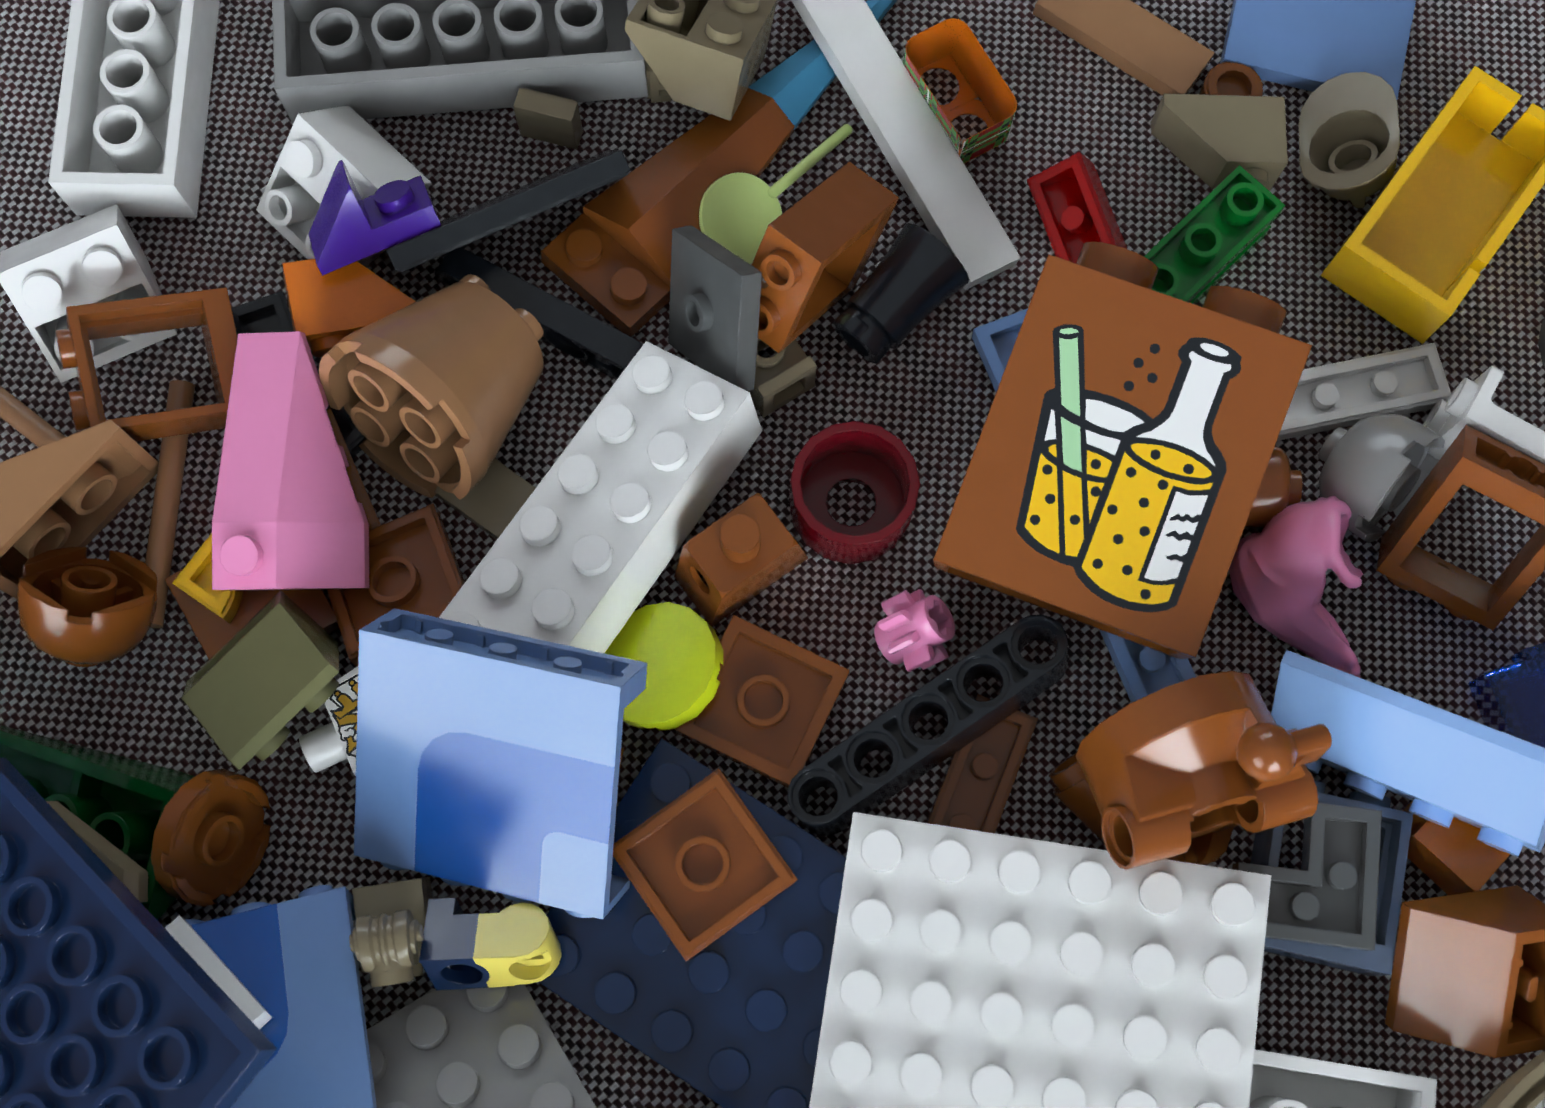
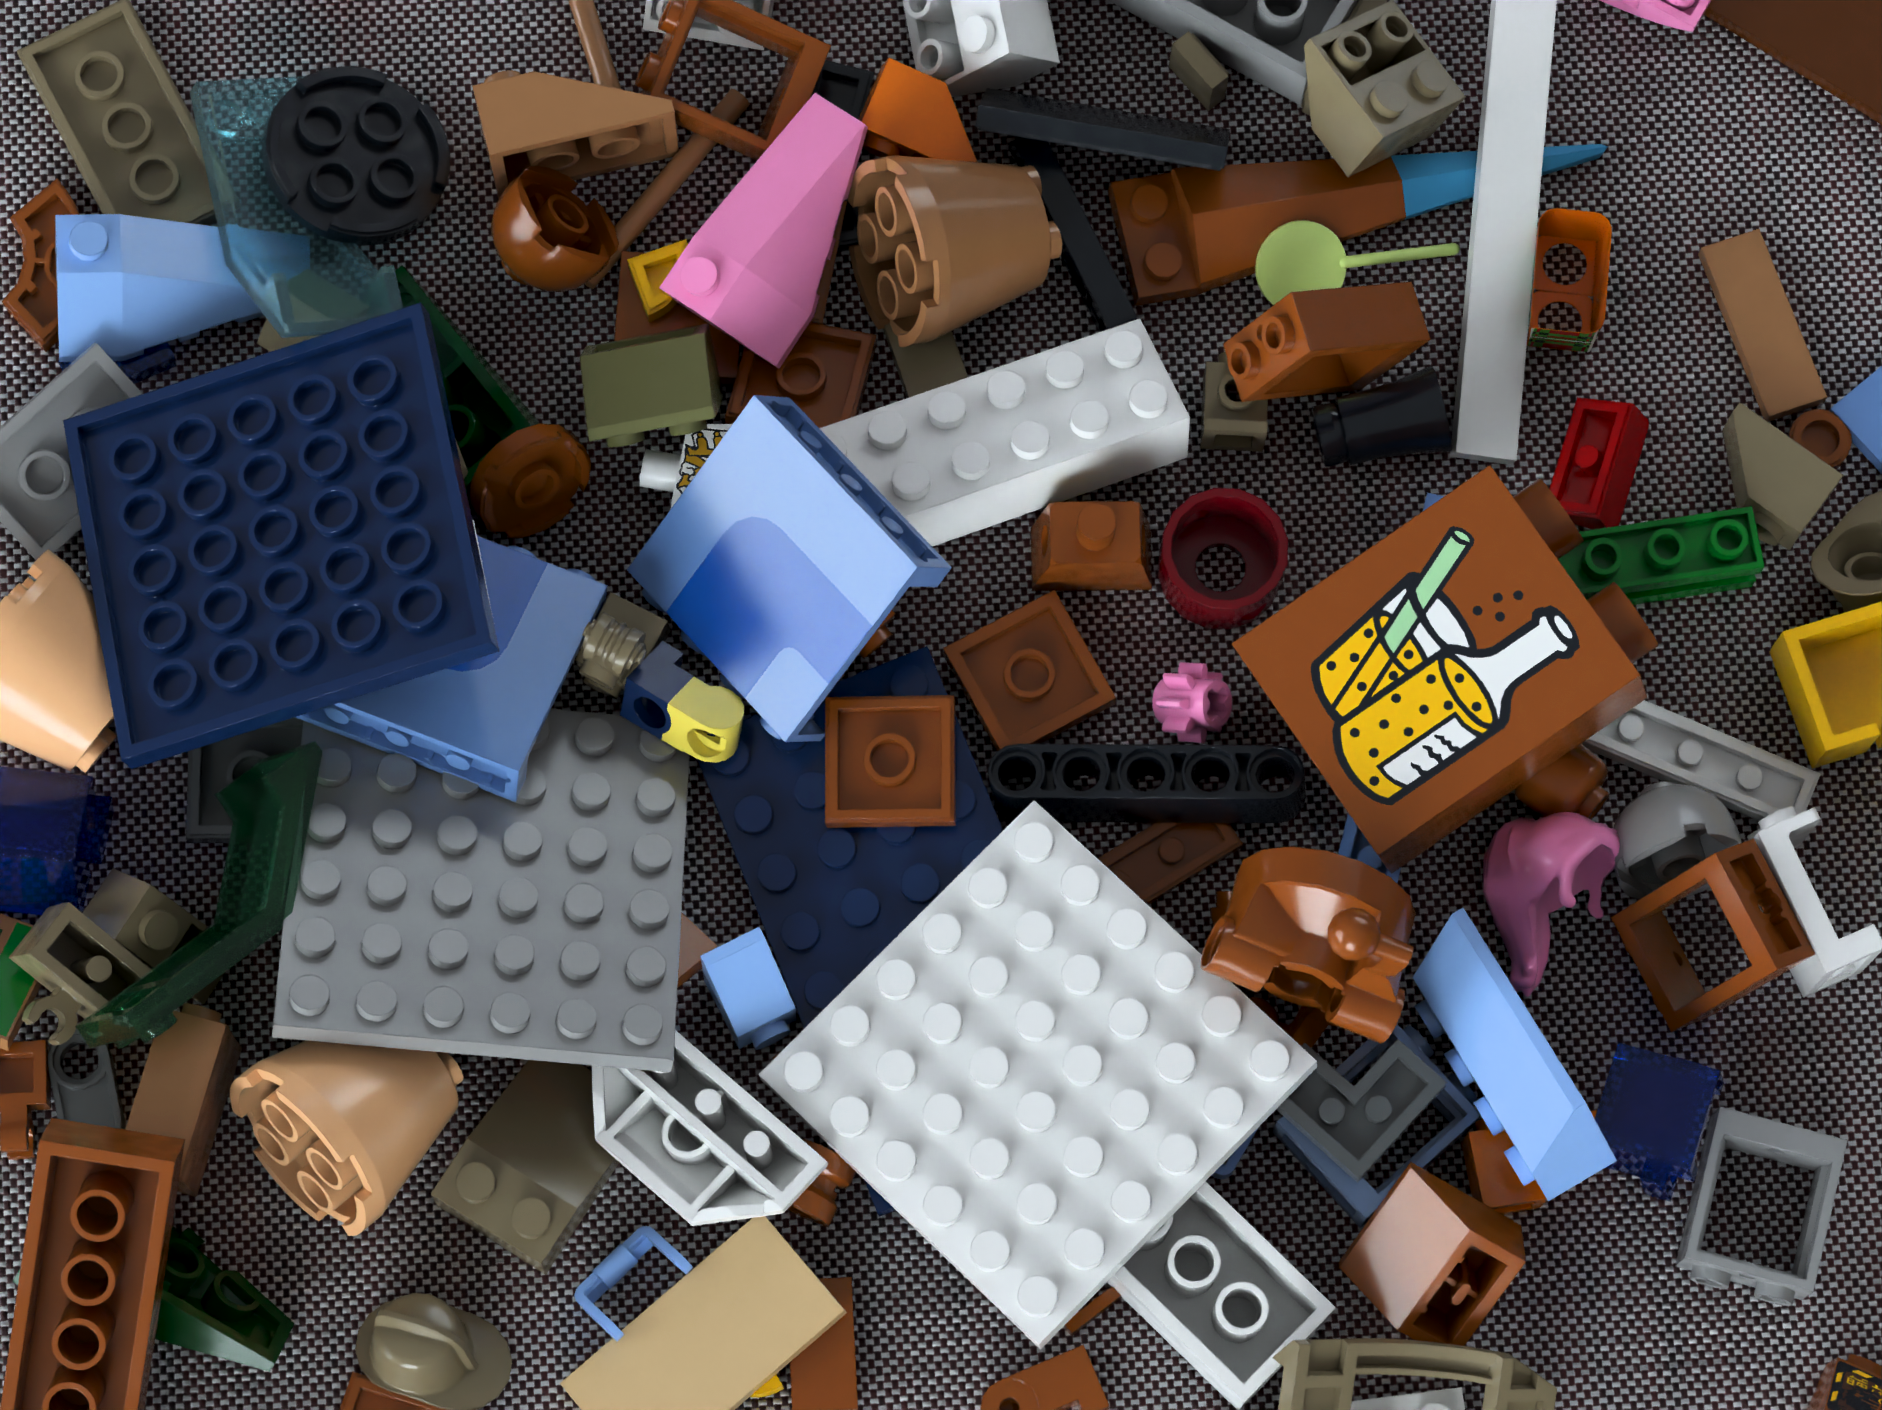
camera: 35 degrees right, 0 degrees up
(357, 227) = (970, 70): dark purple slope -> none
(680, 660) = (975, 597): neon yellow tile -> none
(714, 307) = (1213, 328): dark grey plate -> none

